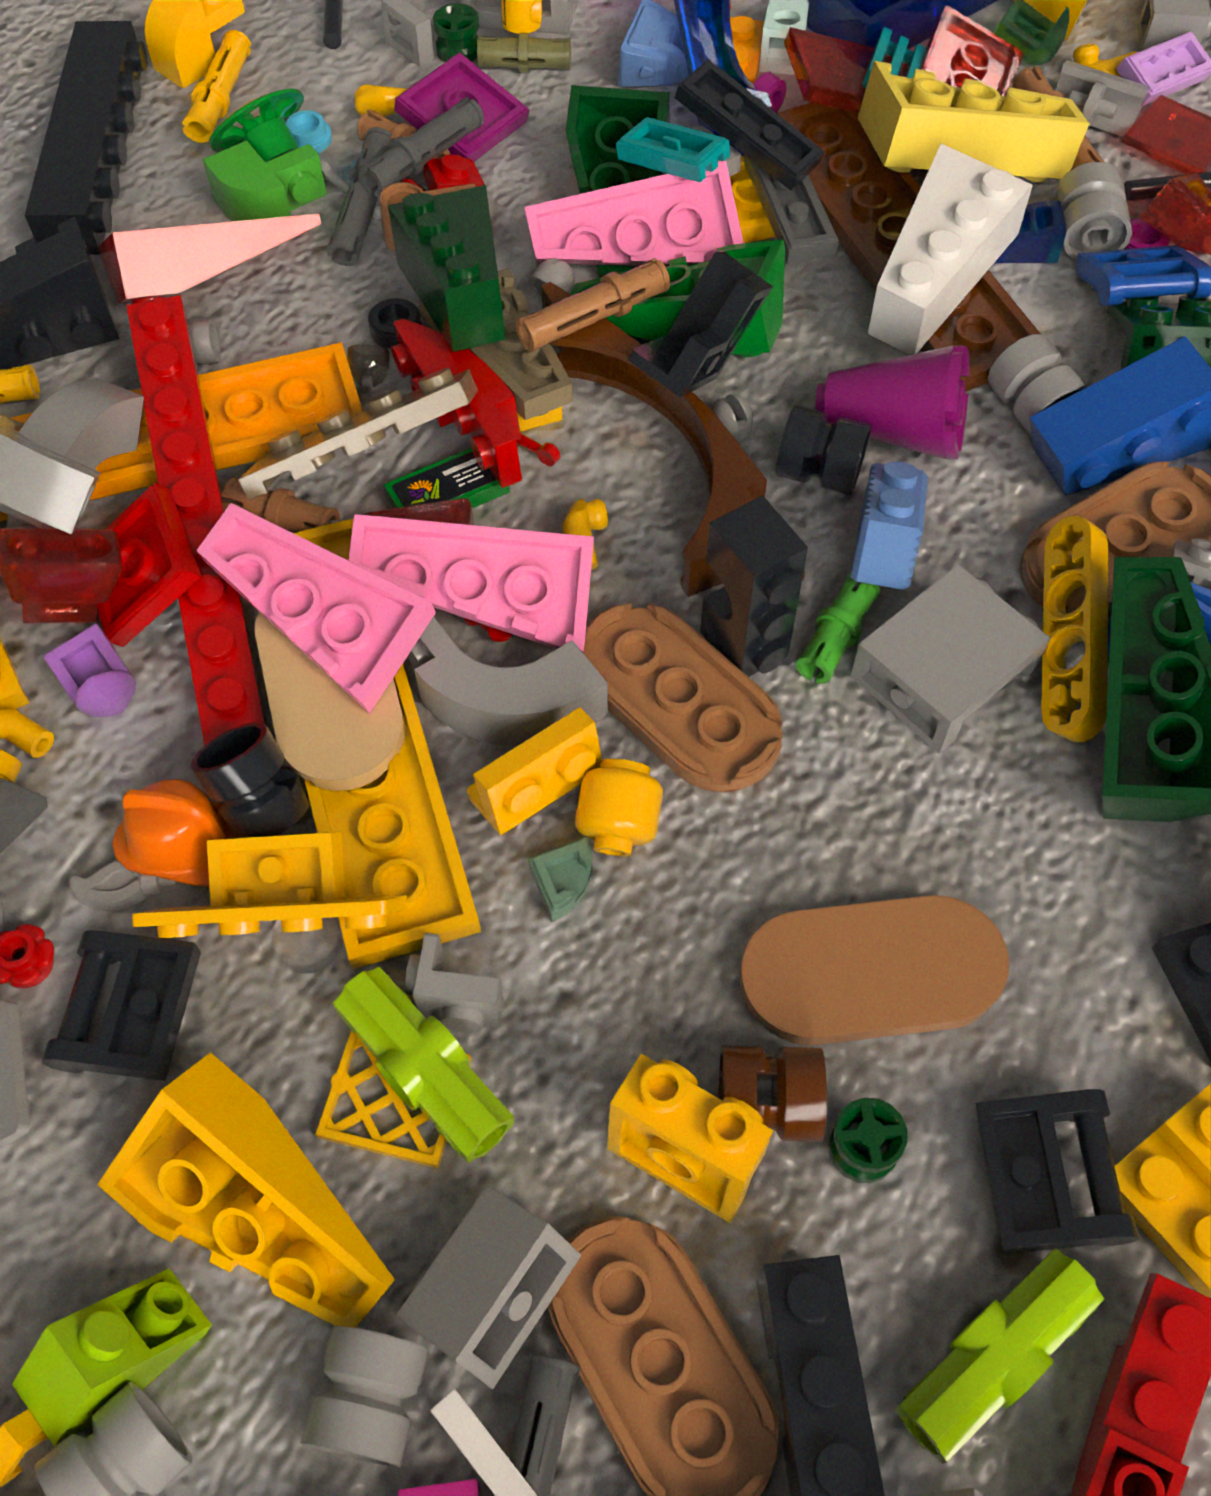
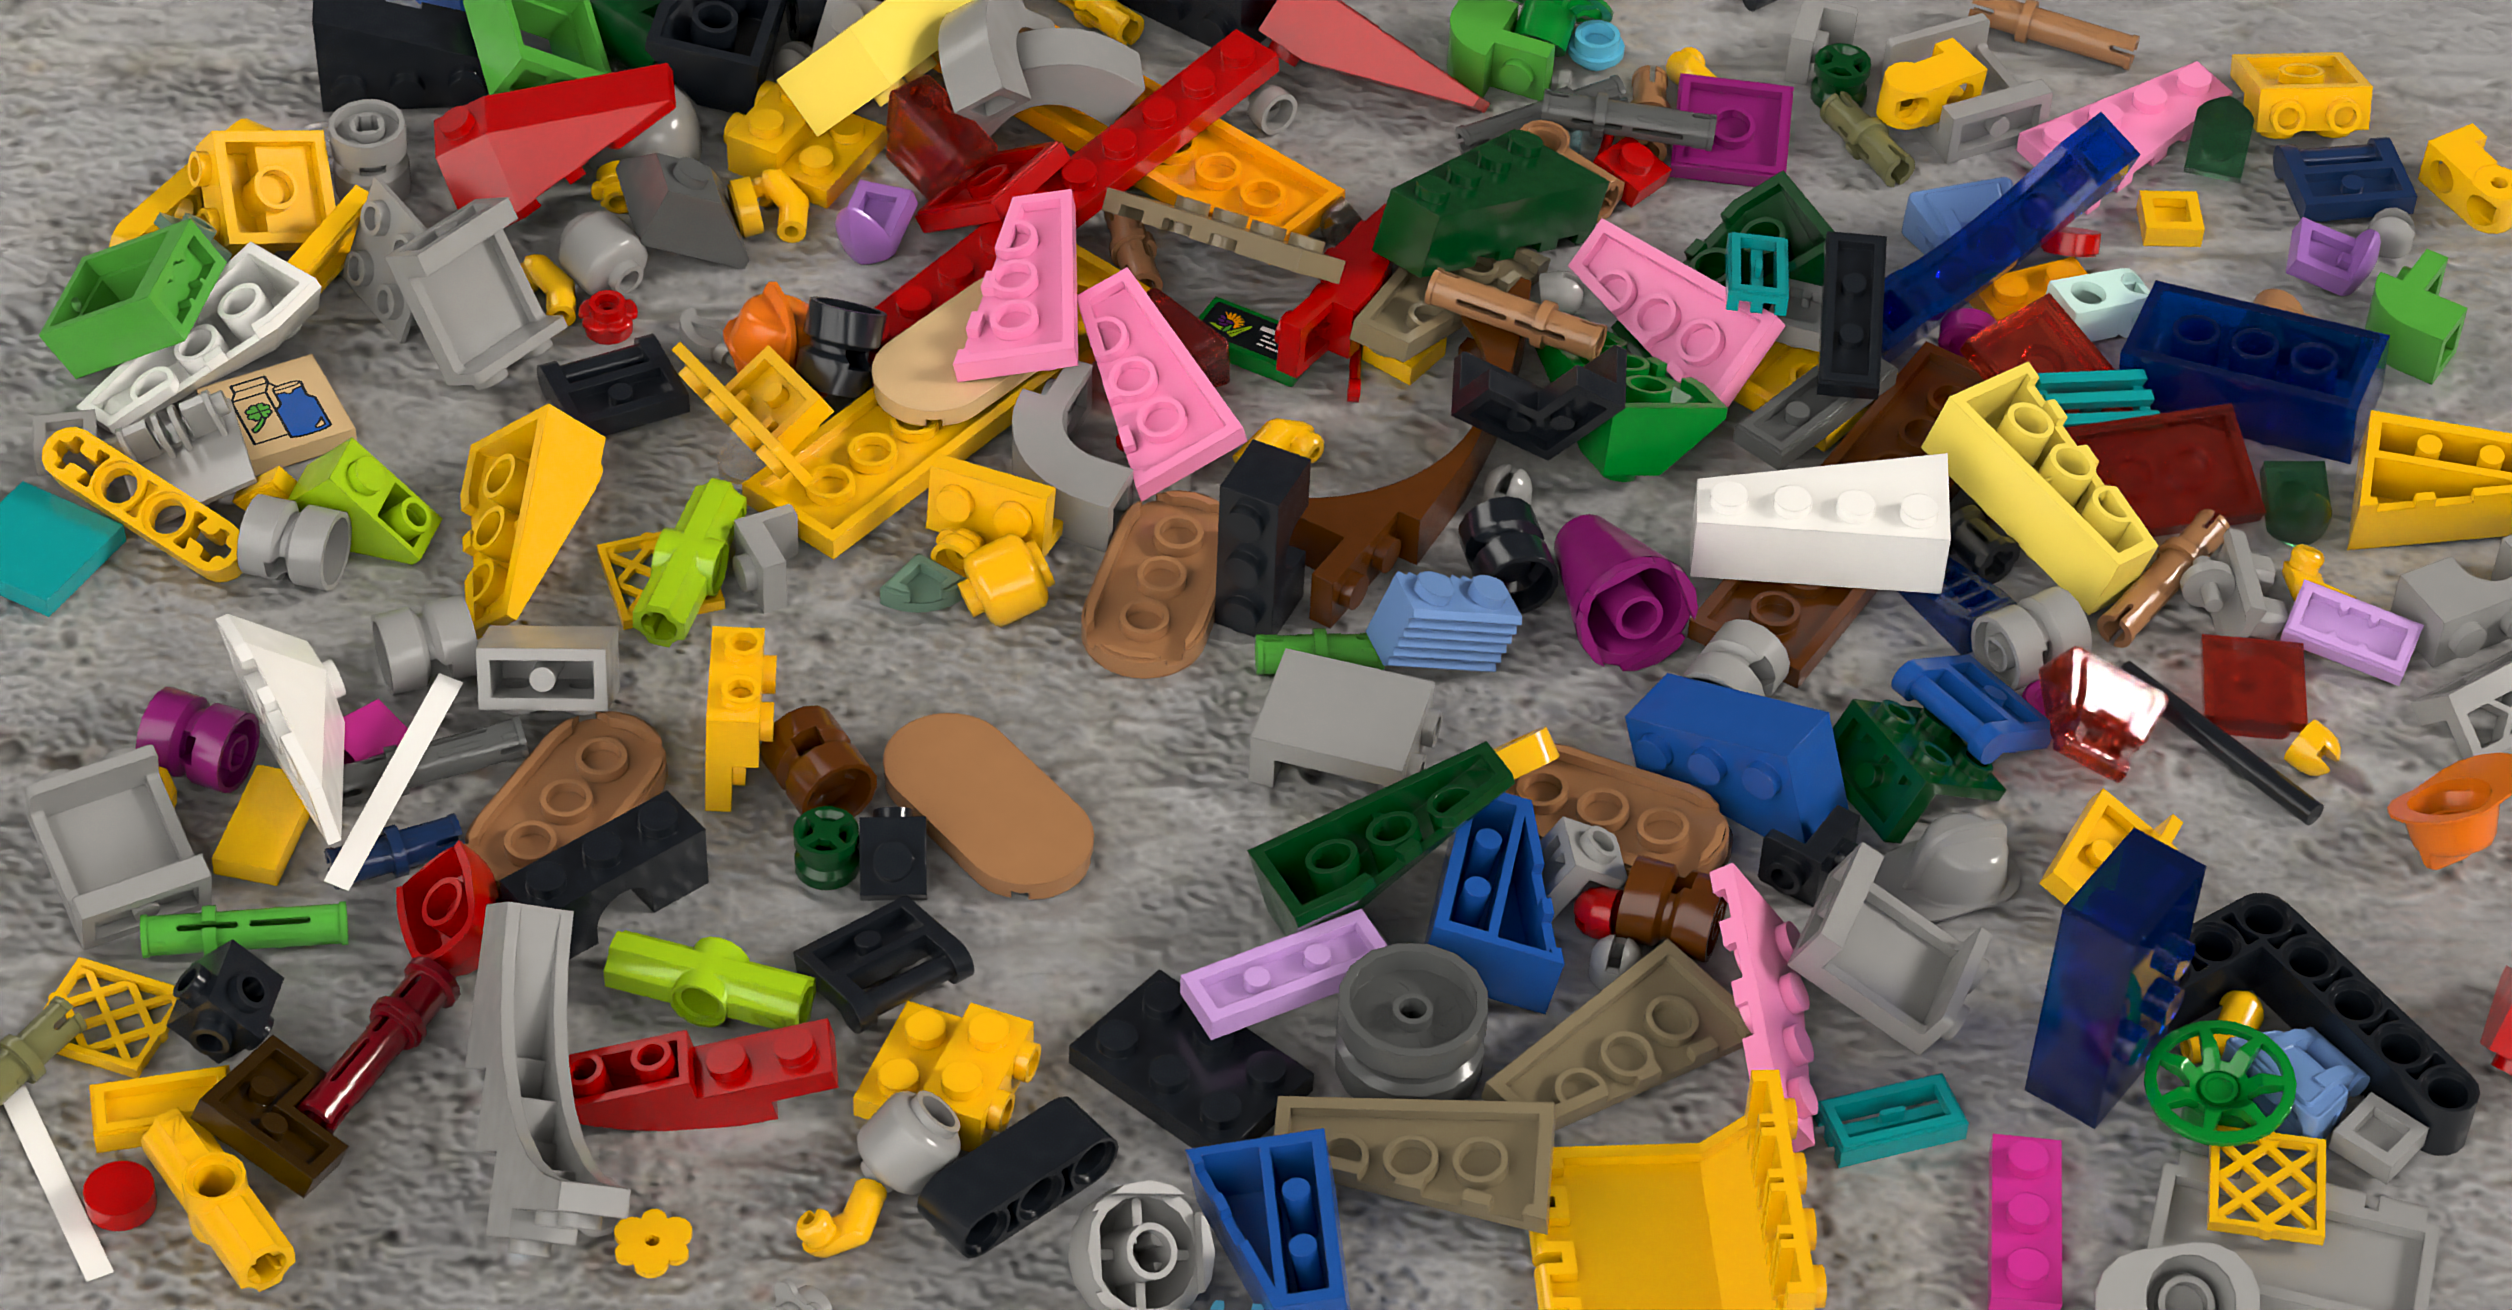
camera: 55 degrees right, 15 degrees down
(552, 824) = (954, 546): none -> yellow plate
(910, 1080) = (893, 855): none -> black bracket

